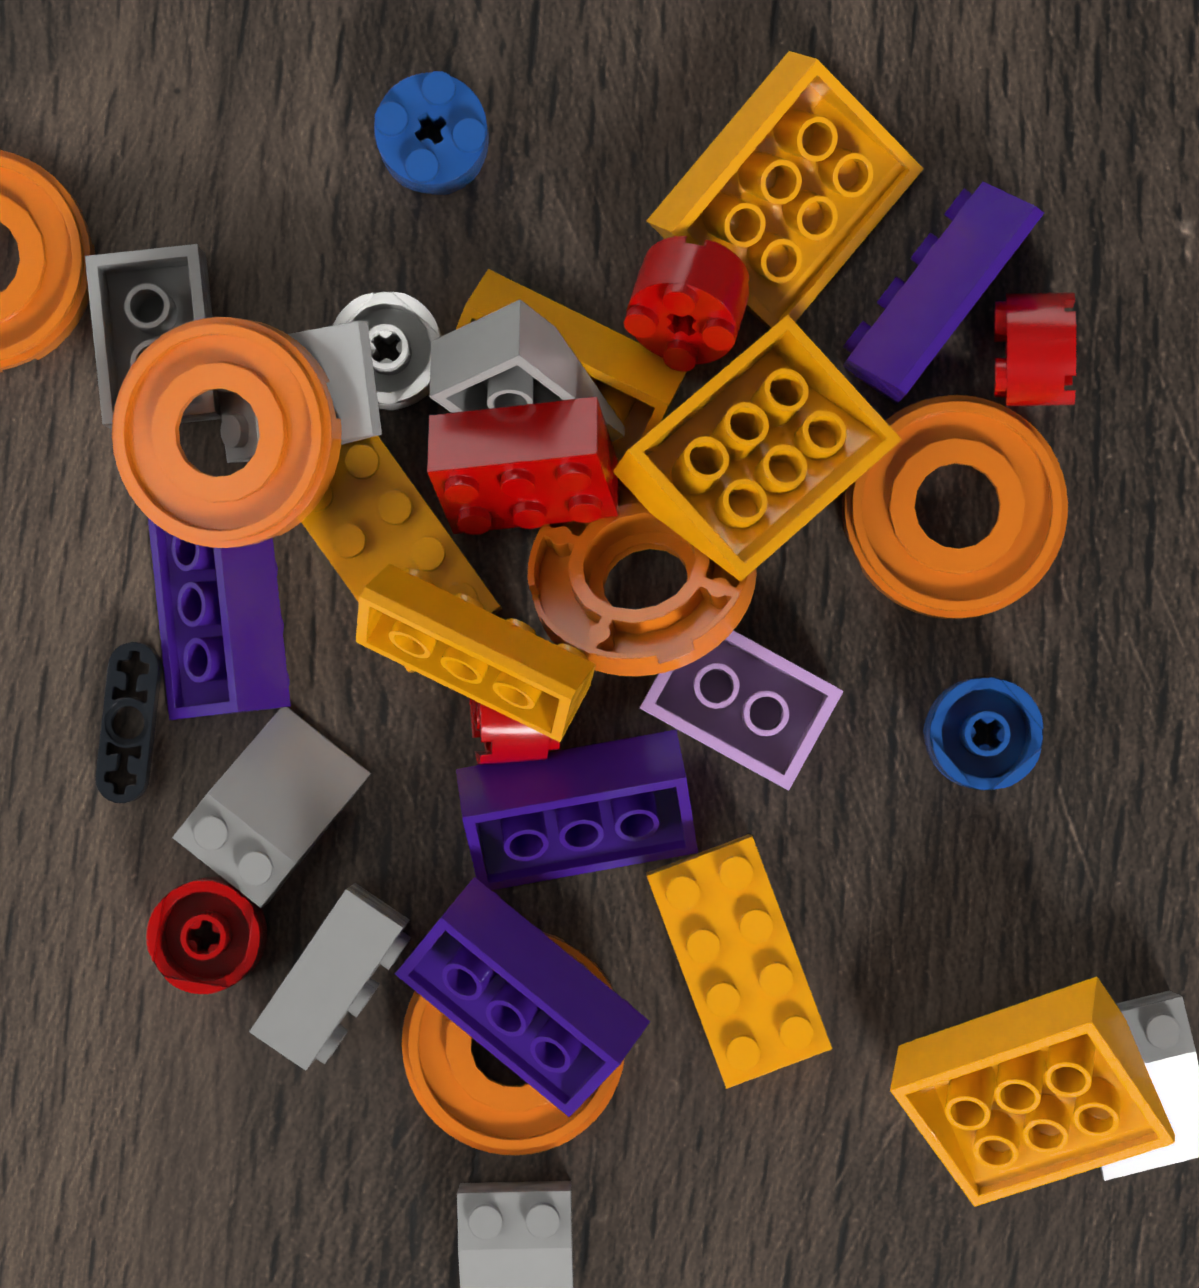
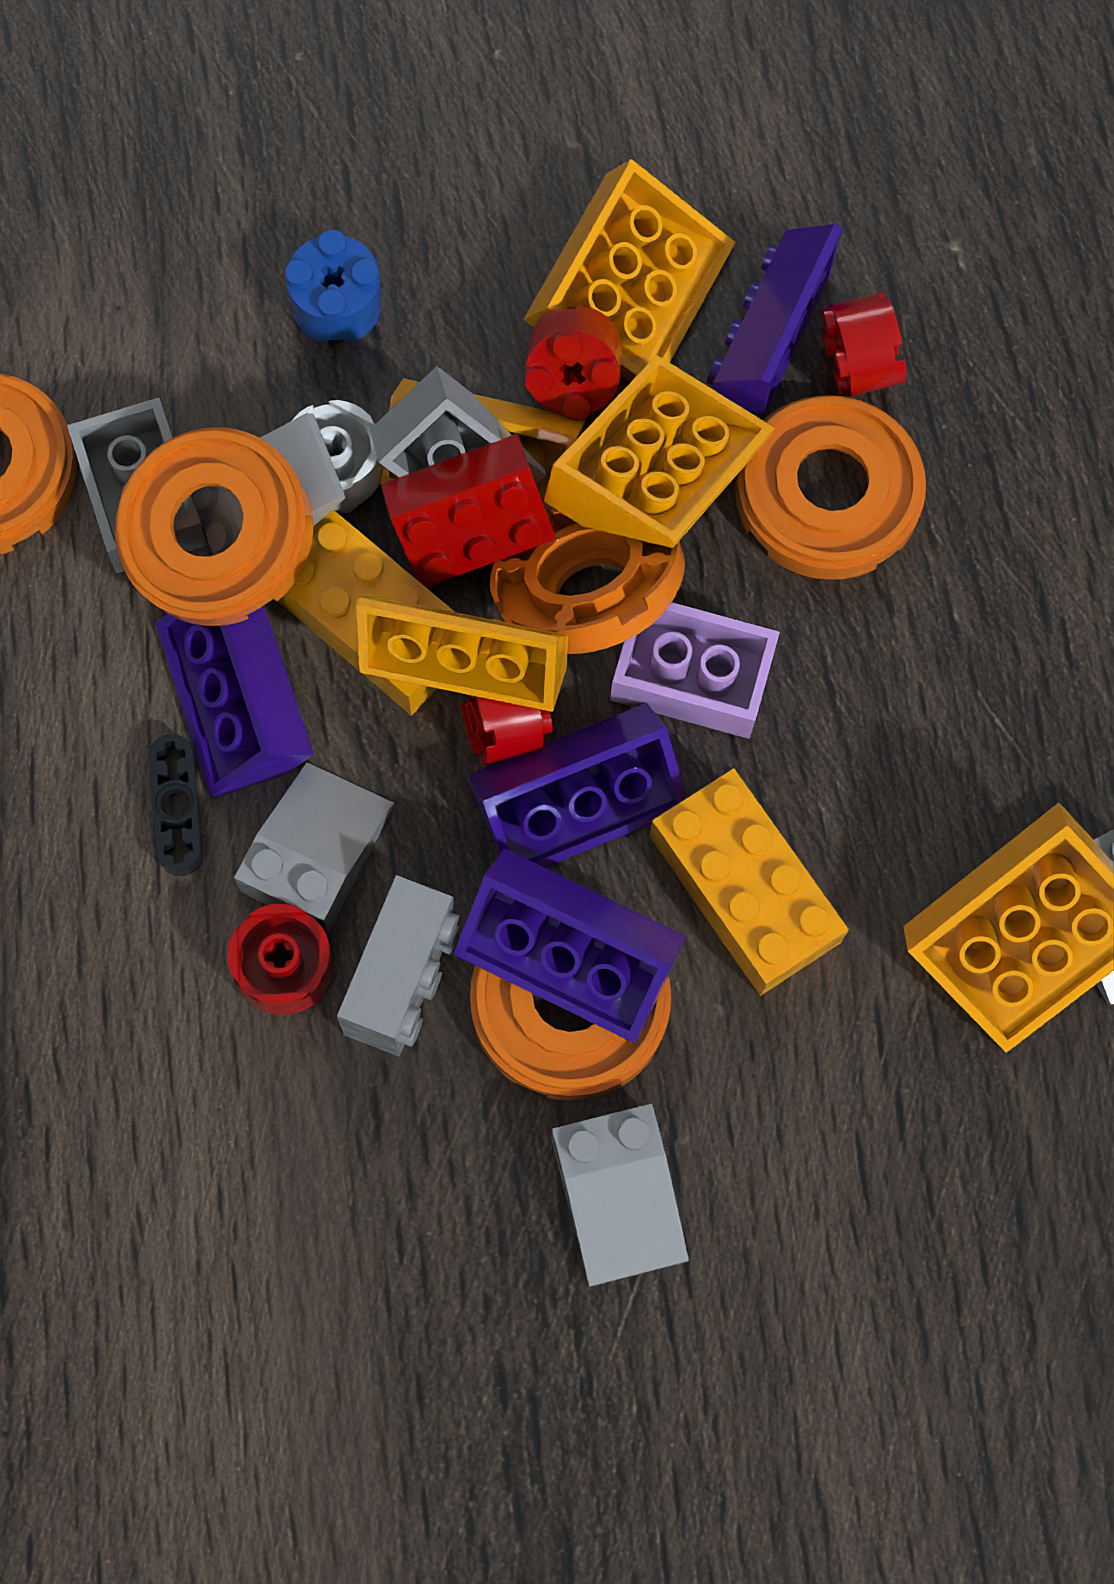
camera: 20 degrees left, 15 degrees down
(1015, 735) = (897, 675): blue brick -> none

